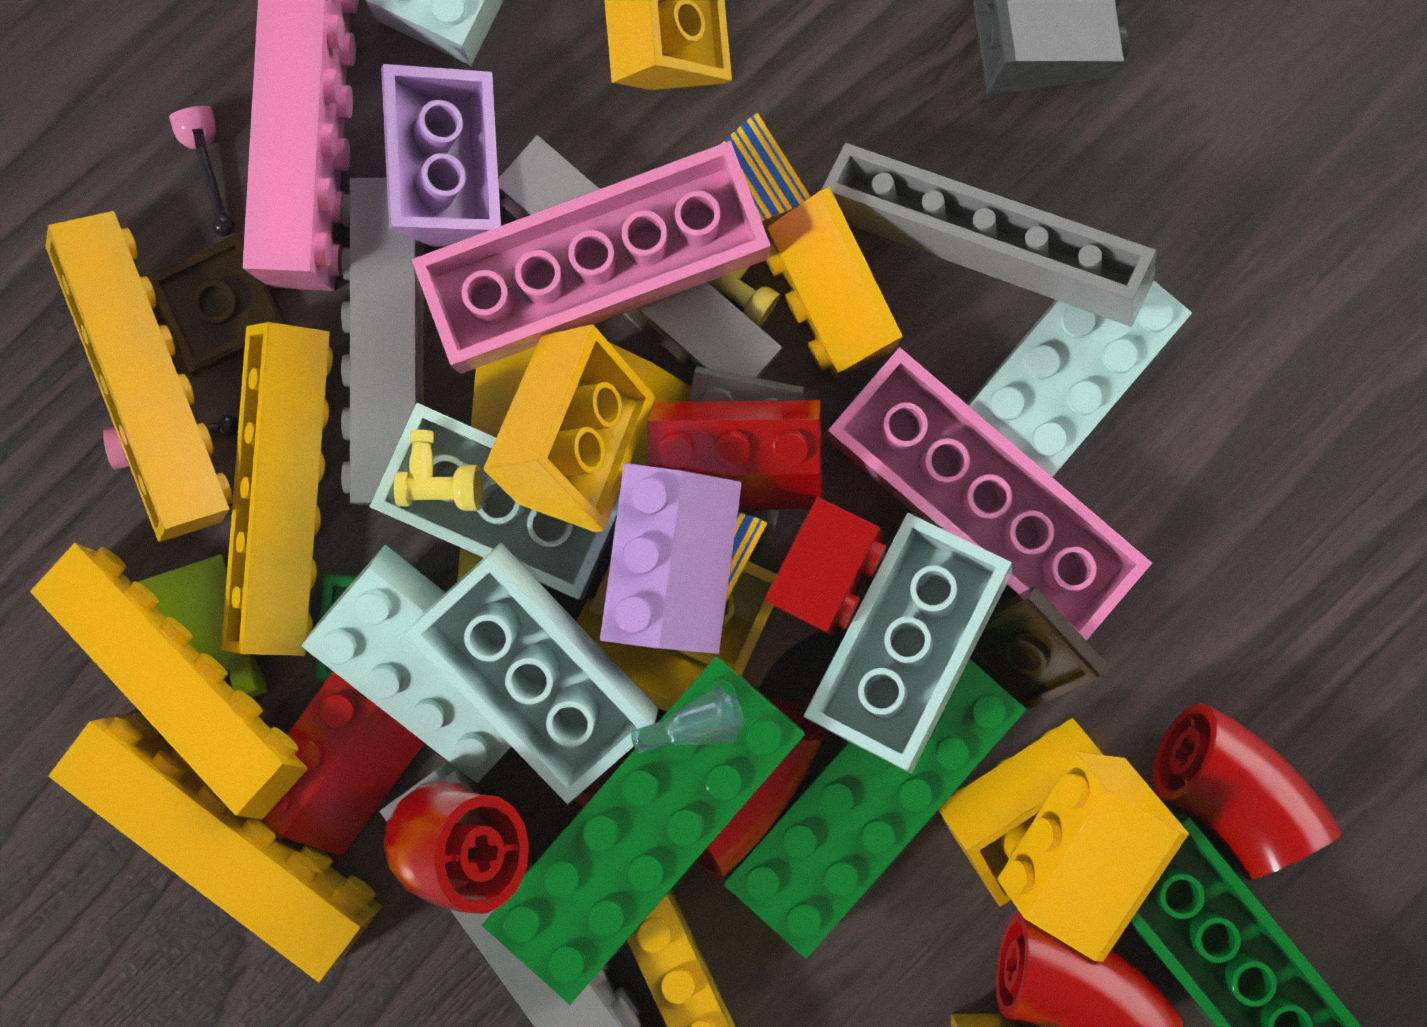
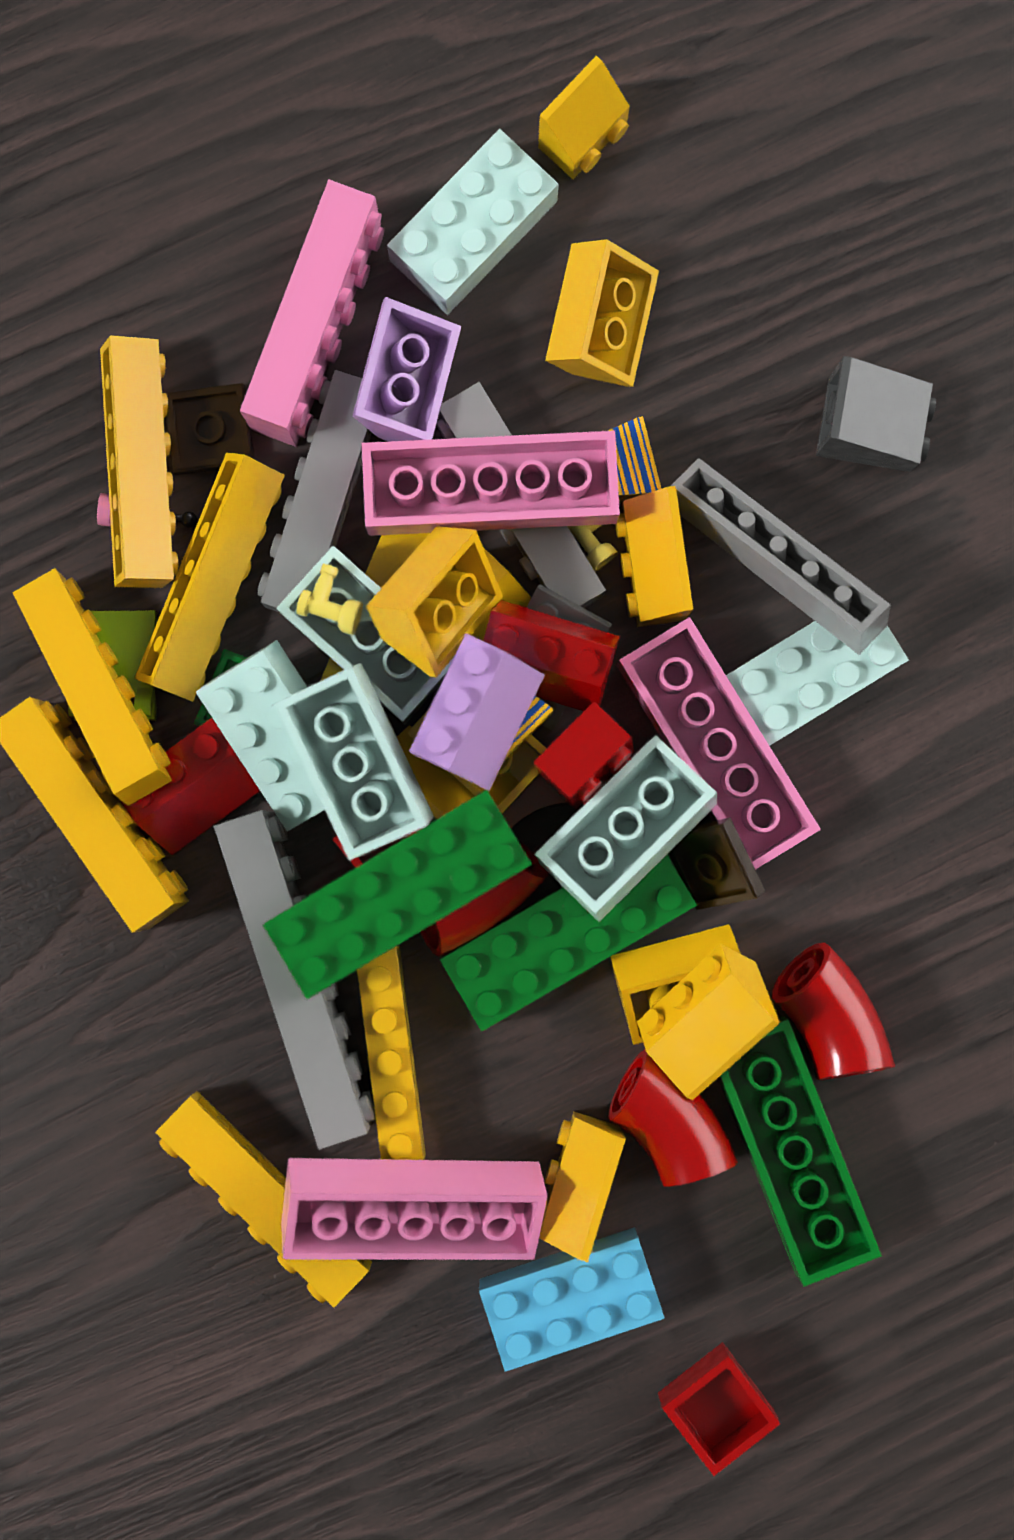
camera: 20 degrees right, 0 degrees up
(196, 130) = (233, 298): hinge -> none
(457, 847) = (263, 862): red brick -> none
(705, 720) = (464, 830): clear light blue cone -> none

